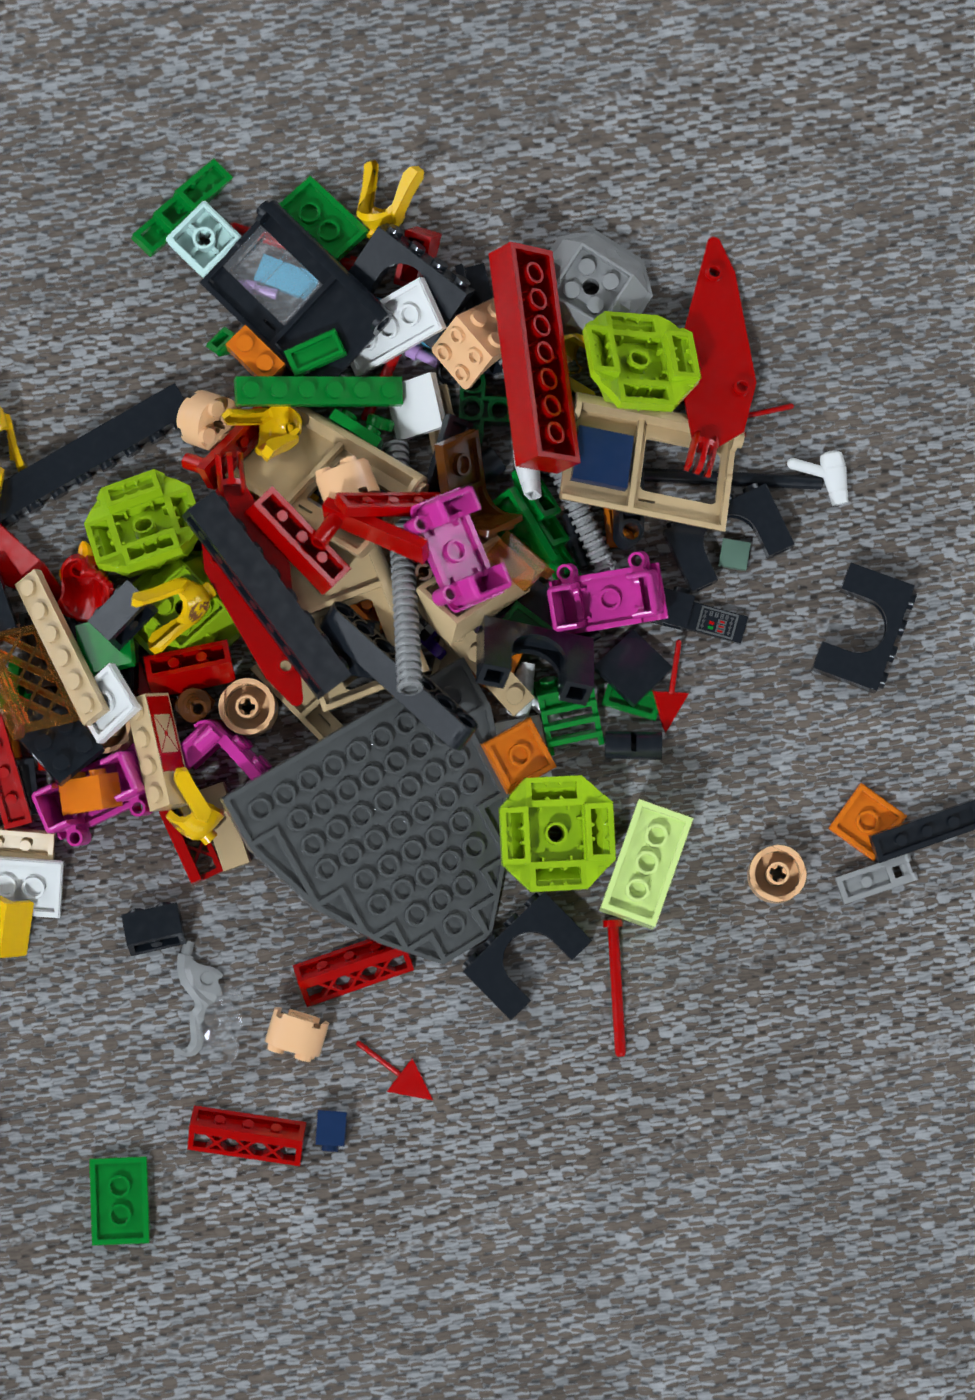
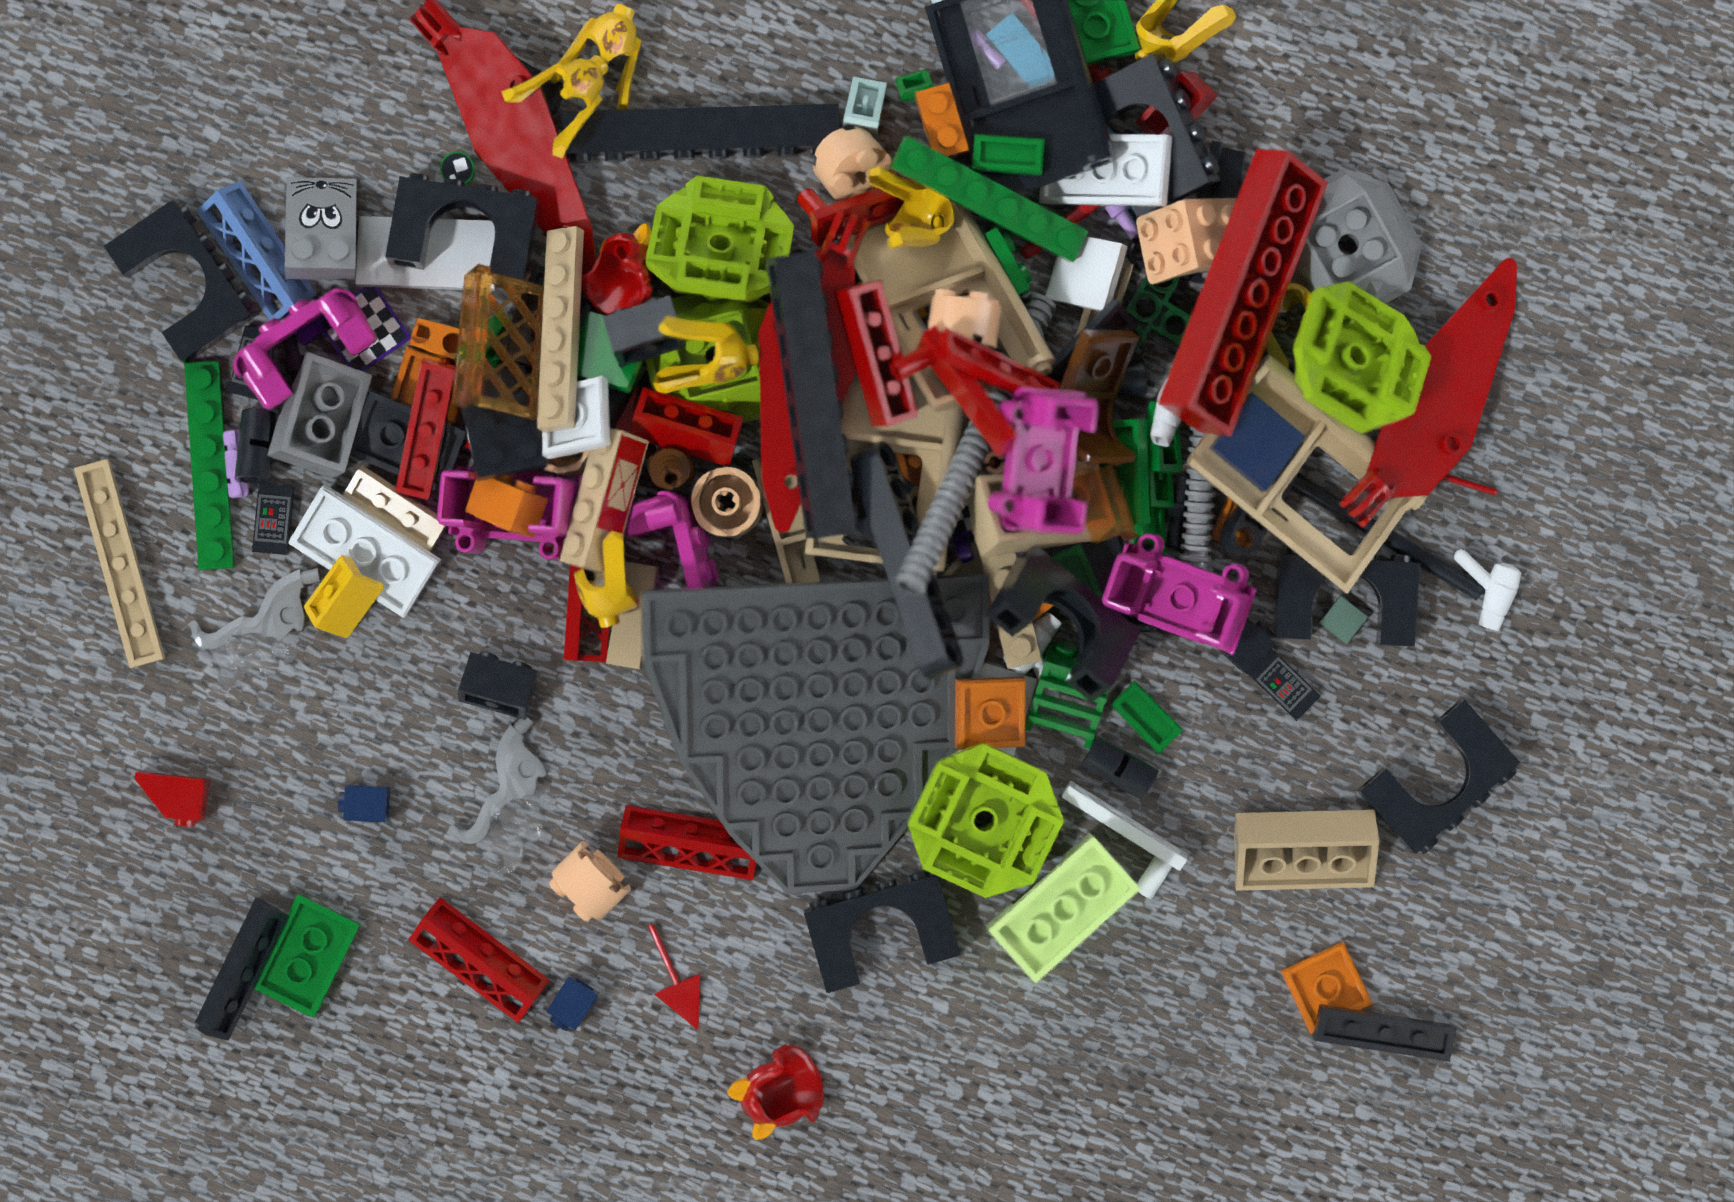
camera: 30 degrees right, 5 degrees up
(77, 1236) = (241, 970): none -> black fence
(103, 1066) = (365, 803): none -> dark blue brick
(194, 374) = (864, 105): none -> light aqua slope
(380, 422) = (1038, 267): green tile -> none
(516, 1110) = (780, 1091): none -> red hair
(616, 985) = (960, 1015): red bar -> none
(633, 668) = (1165, 684): black tile -> none
(670, 702) = (1187, 742): red piece -> none
(700, 788) = (1165, 853): none -> white piece
(791, 868) = (1196, 1012): light nougat brick -> none
(798, 731) = (1305, 850): none -> tan slope
(875, 879) = (1300, 1054): light grey plate -> none

